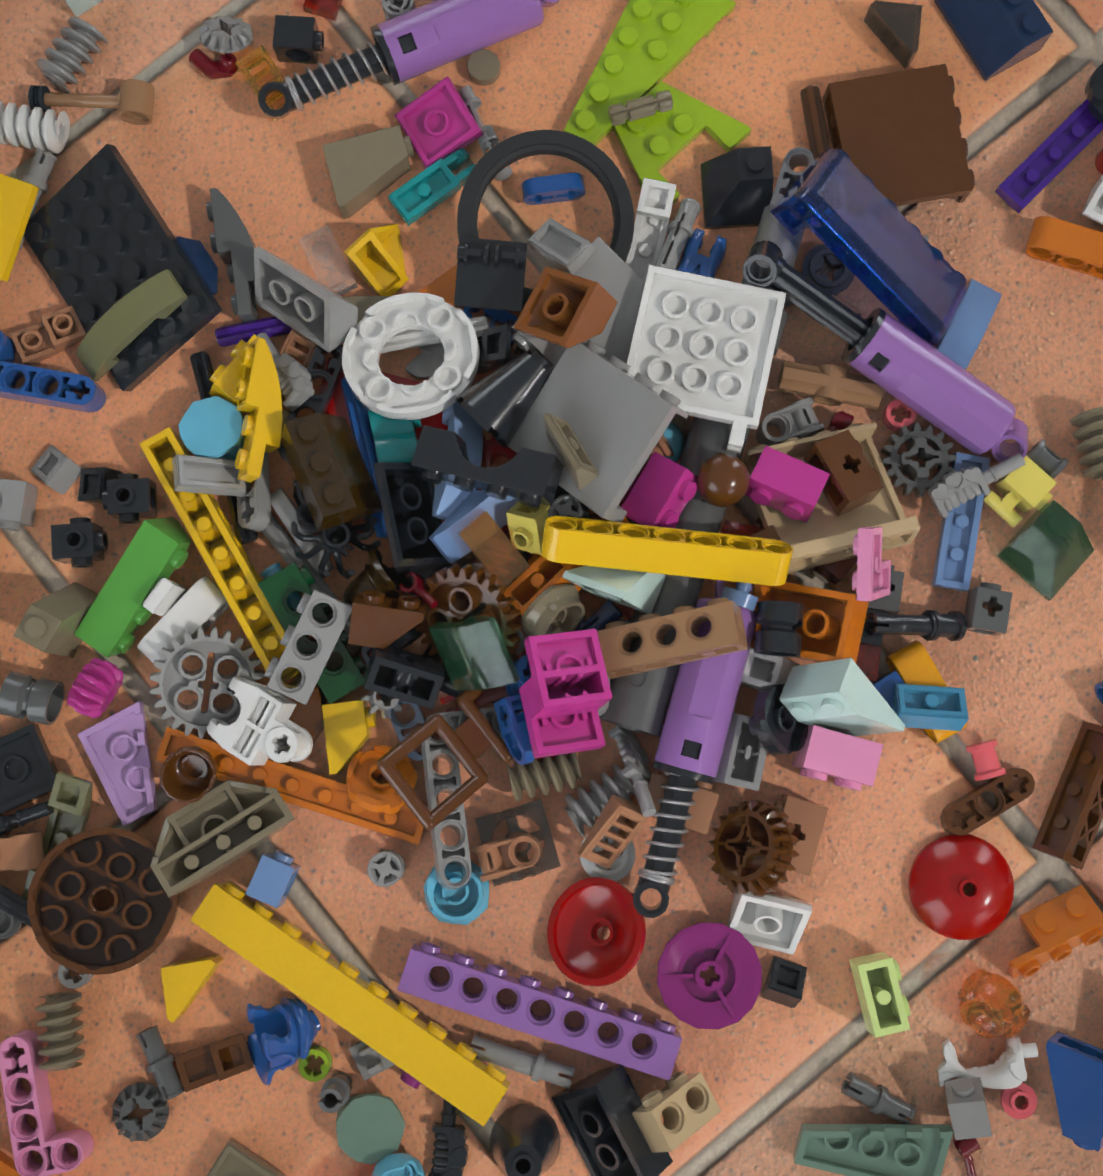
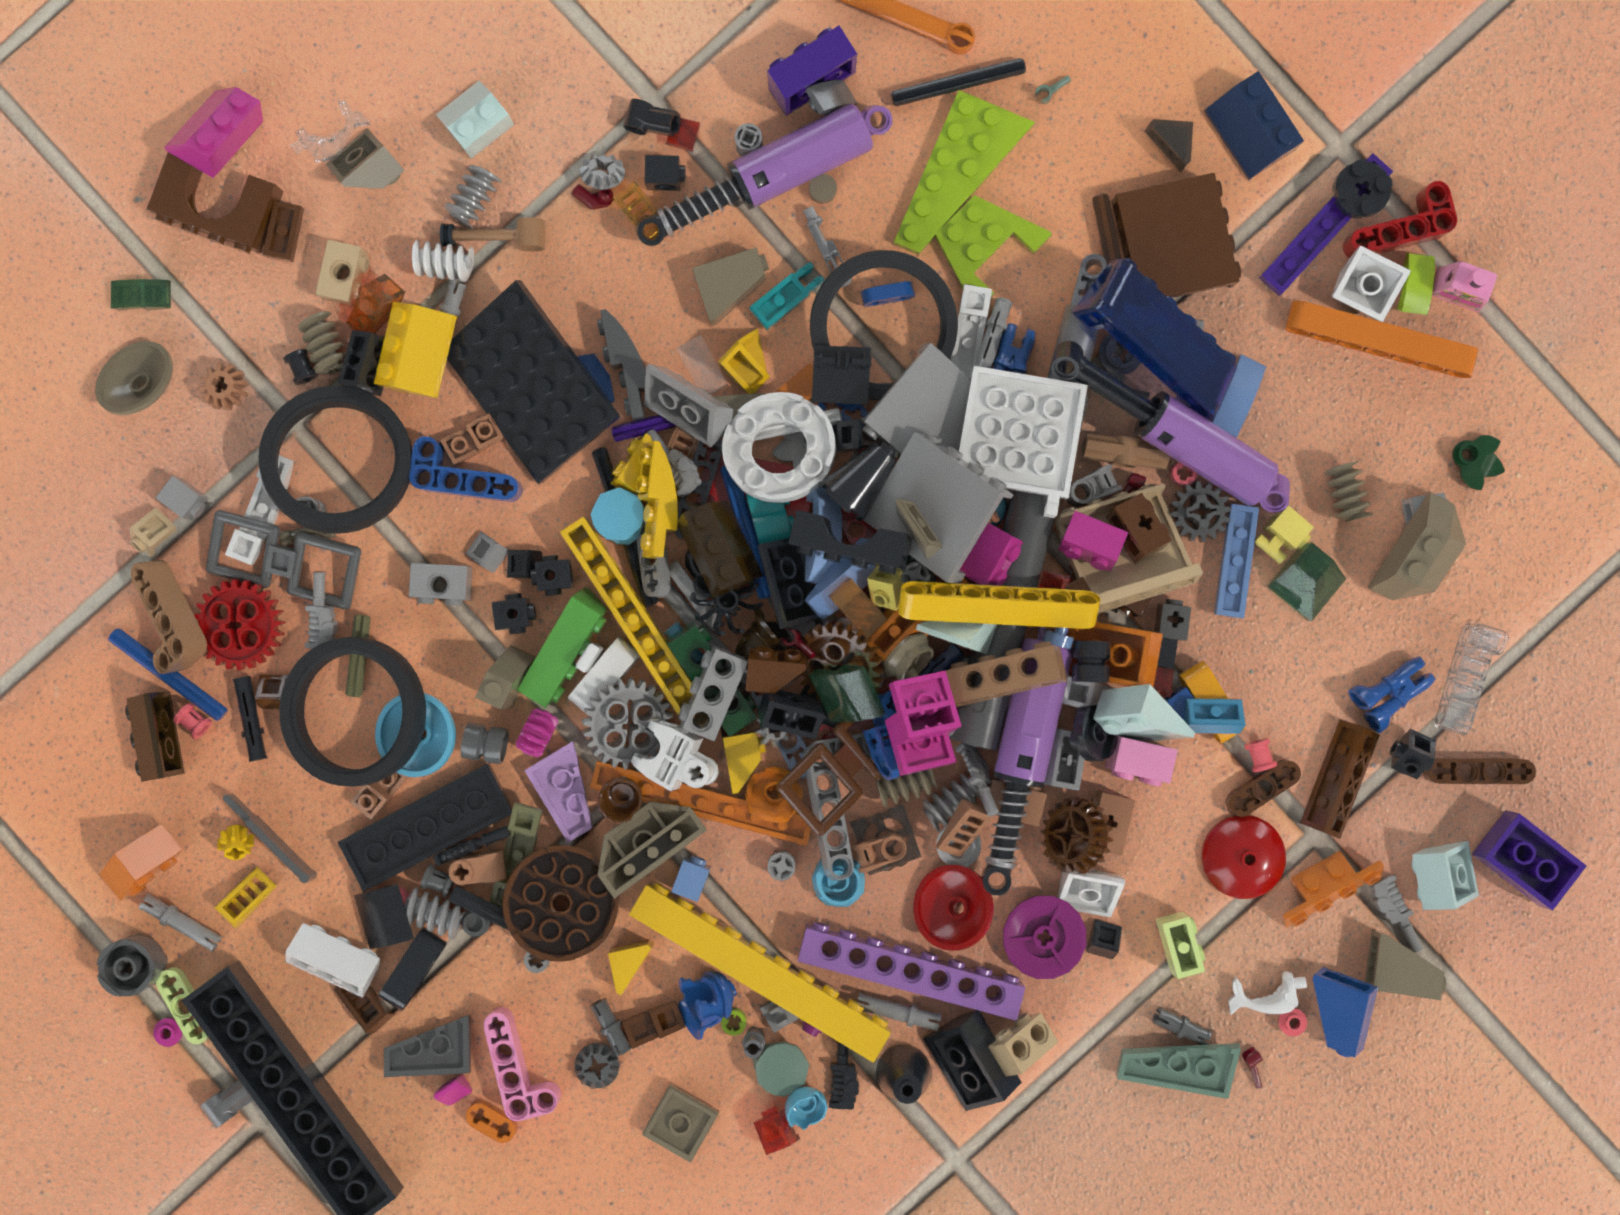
camera: 10 degrees left, 5 degrees up
(60, 1031) = (531, 1006): dark tan piece -> none
(126, 320) = (543, 430): olive slope -> none
(207, 476) = (618, 556): light grey tile -> none
(438, 123) = (788, 241): dark pink tile -> none
(561, 246) = (899, 351): light grey tile -> none
(565, 309) = (906, 408): dark orange slope -> none
(640, 107) = (958, 222): dark tan axle -> none
(723, 480) = (1041, 541): reddish brown hair -> none
(737, 187) = (1042, 286): black slope -> none
(873, 573) = (1166, 610): bright pink plate -> none
(928, 625) = (1211, 648): black pin -> none
(967, 1108) = (1252, 1030): light grey brick -> none
(968, 483) = (1235, 533): light grey piece -> none
(978, 618) = (1256, 642): dark grey brick -> none
(992, 1005) = (1270, 949): clear orange hair -> none
(1047, 459) = (1305, 506): dark grey bush -> none

